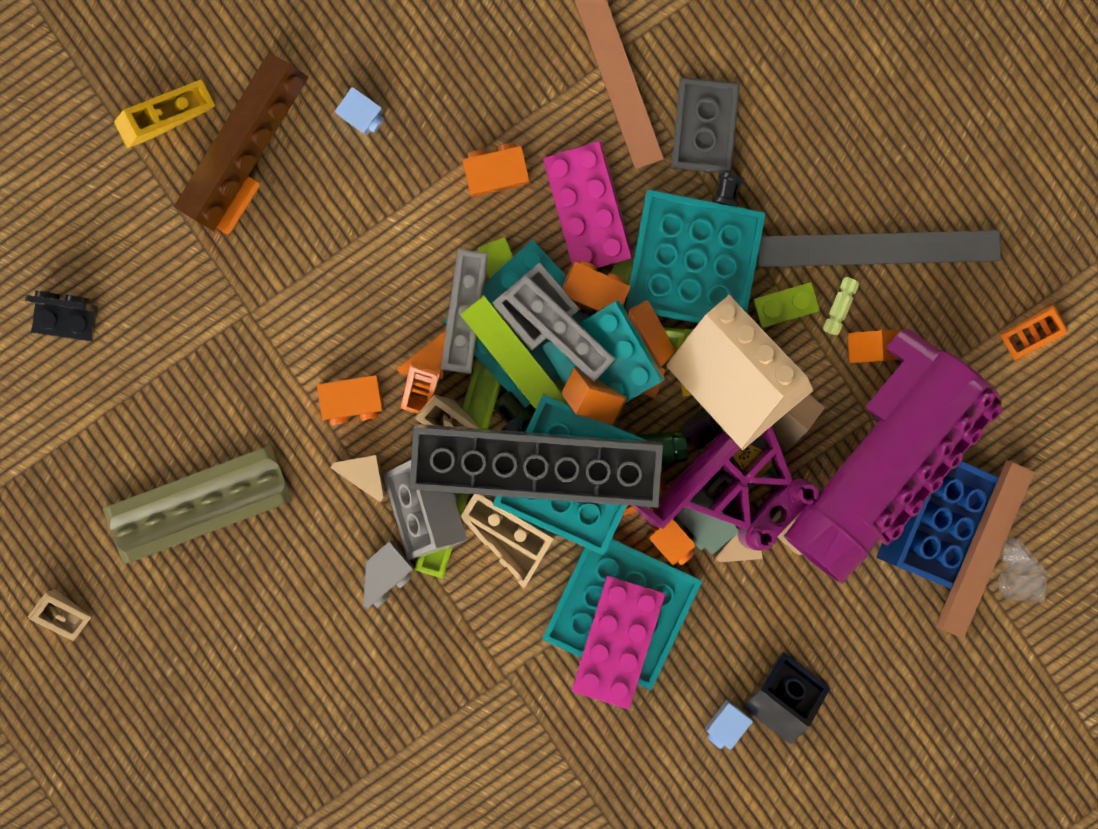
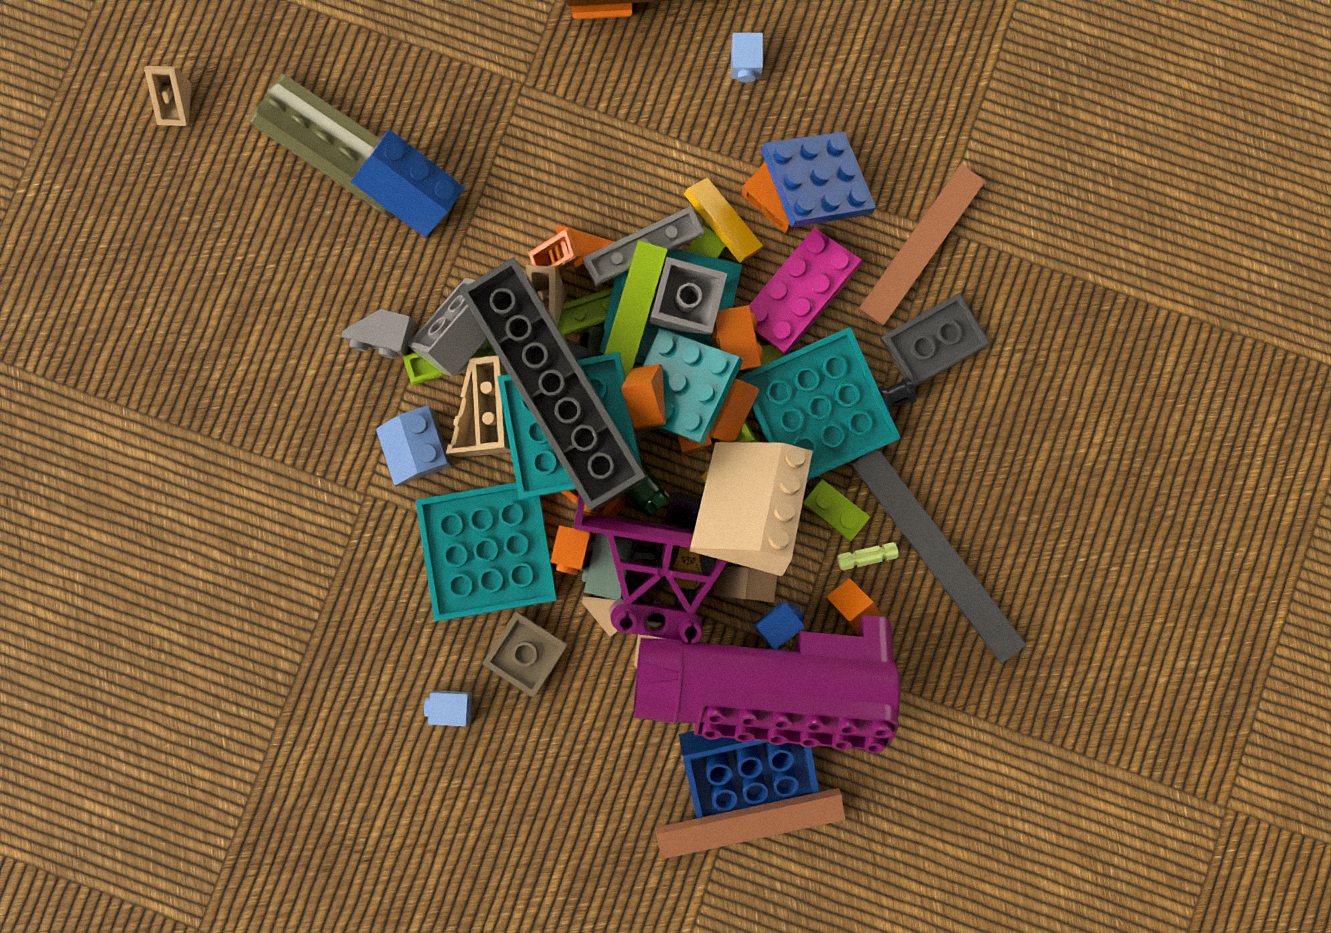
camera: 60 degrees right, 5 degrees down
(276, 468) = (407, 183): none -> blue slope
(350, 398) = (508, 207): orange brick -> none
(363, 473) = (453, 261): tan slope -> none
(484, 228) = (723, 220): none -> yellow tile
(496, 611) = (414, 445): none -> medium blue slope
(507, 128) = (818, 179): none -> blue plate
(559, 328) = (684, 326): light grey tile -> none
(618, 642) = (455, 564): dark pink plate -> none
(727, 635) = (525, 654): none -> dark tan plate
(787, 698) = (506, 742): black slope -> none
(846, 417) = (779, 624): none -> blue brick
(1023, 574) = (752, 872): clear slope -> none
(1057, 319) = (986, 747): orange slope -> none

